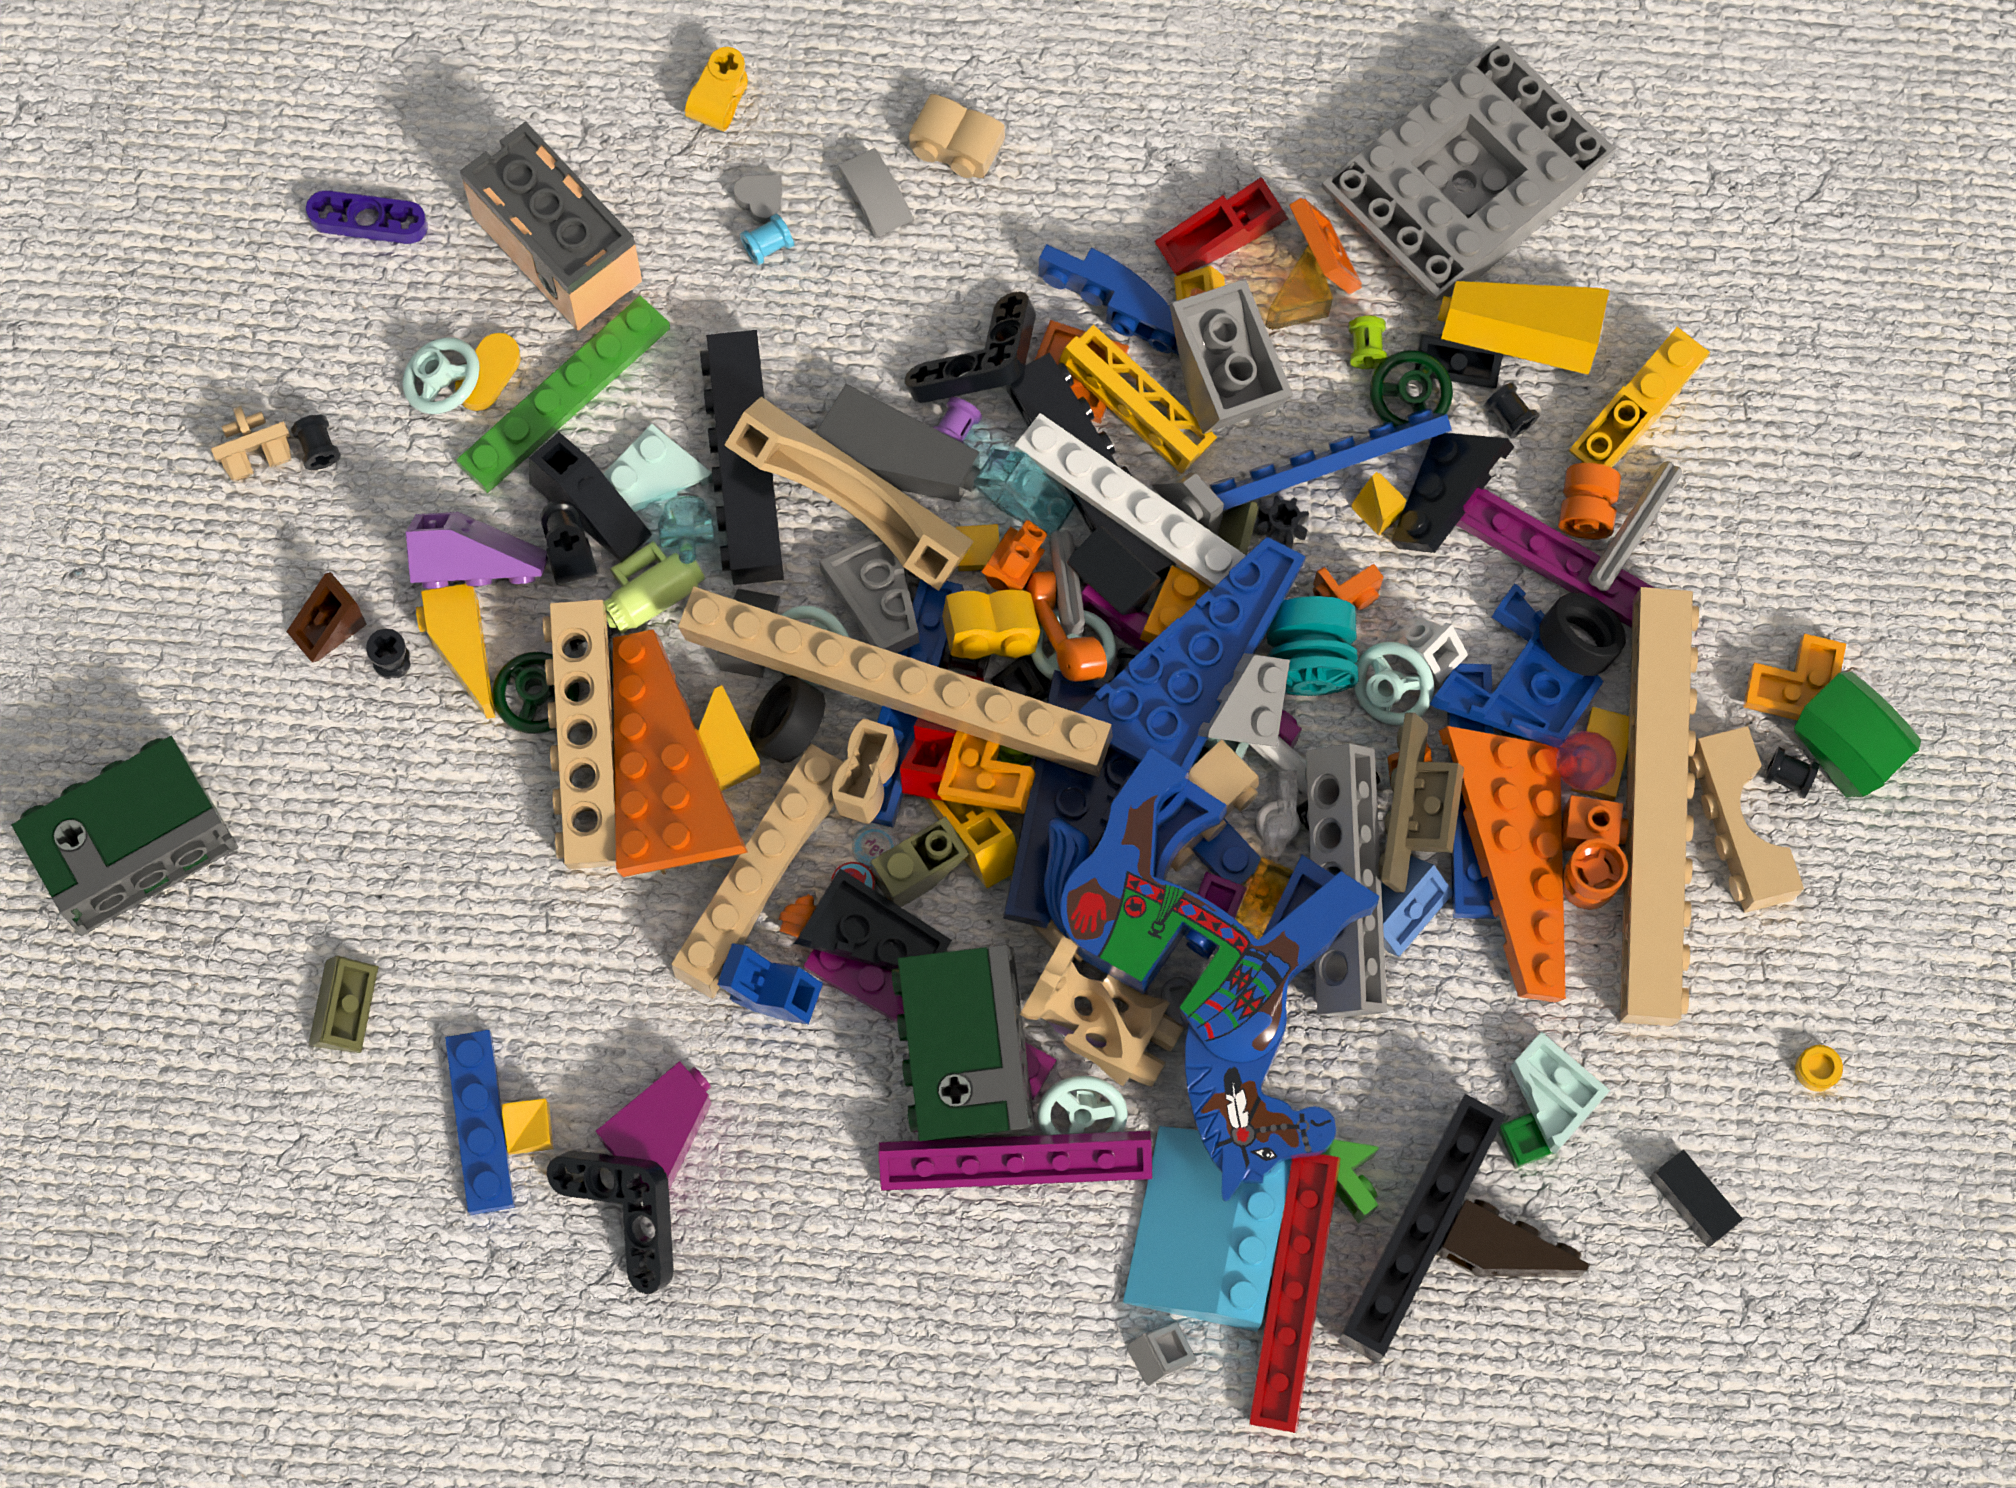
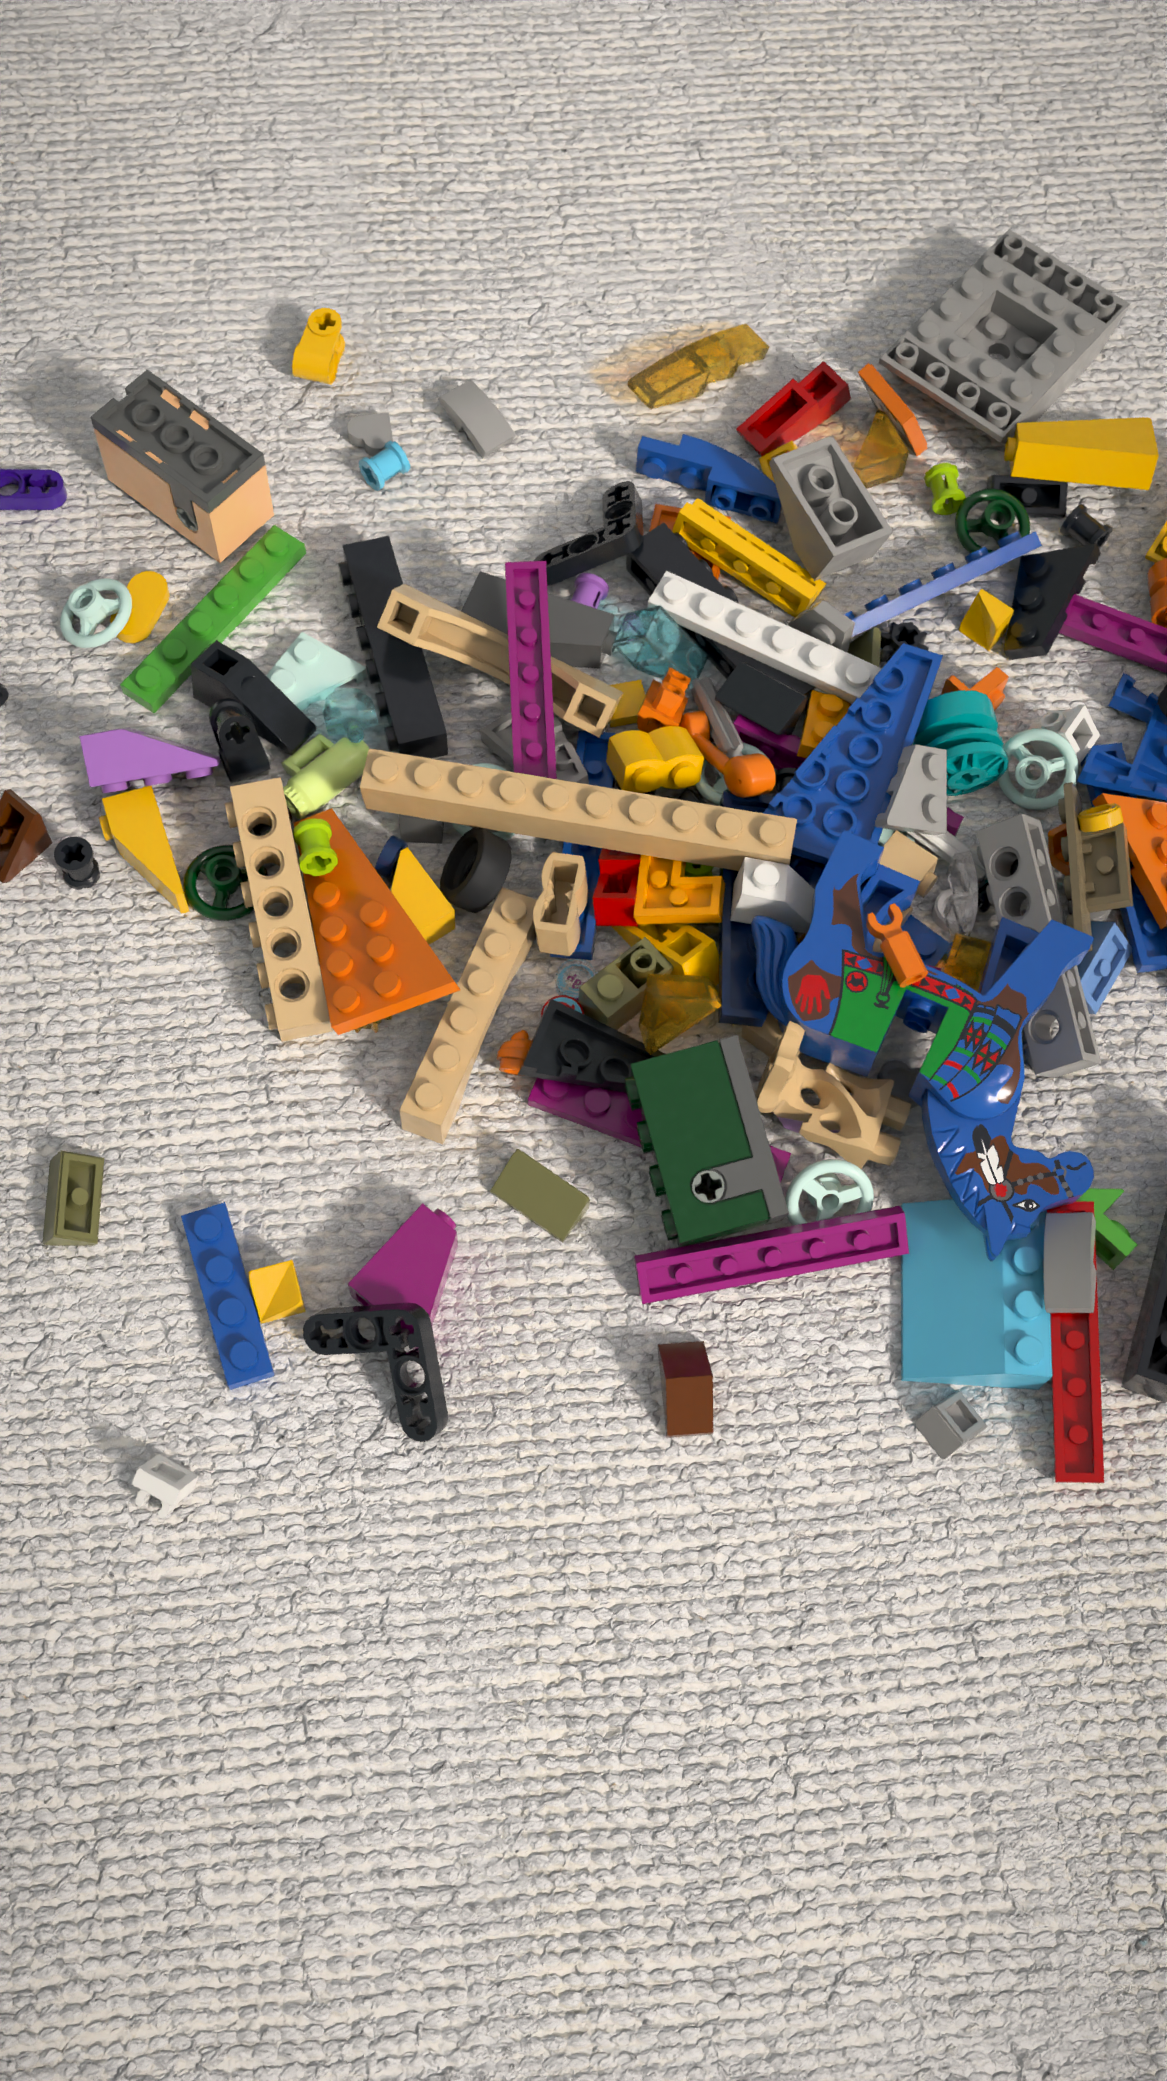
camera: 10 degrees left, 5 degrees down
(395, 1295) = (164, 1481): none -> white tile
(627, 672) = (313, 839): none -> lime bush
(704, 688) = (389, 856): none -> dark blue tile
(769, 987) = (498, 1122): blue brick -> none
(799, 1067) = (540, 1195): none -> olive slope
(874, 518) = (530, 669): none -> magenta plate
(908, 1279) = (686, 1389): none -> reddish brown slope
(956, 136) = (542, 363): tan brick -> none
(963, 894) = (673, 1006): none -> clear yellow slope
(1076, 795) = (773, 892): none -> white slope
(1126, 159) = (691, 368): none -> clear yellow slope
(1180, 881) = (898, 948): none -> orange bar
(1296, 1215) = (1069, 1263): none -> light grey slope
(1437, 754) = (1100, 817): none -> yellow tile

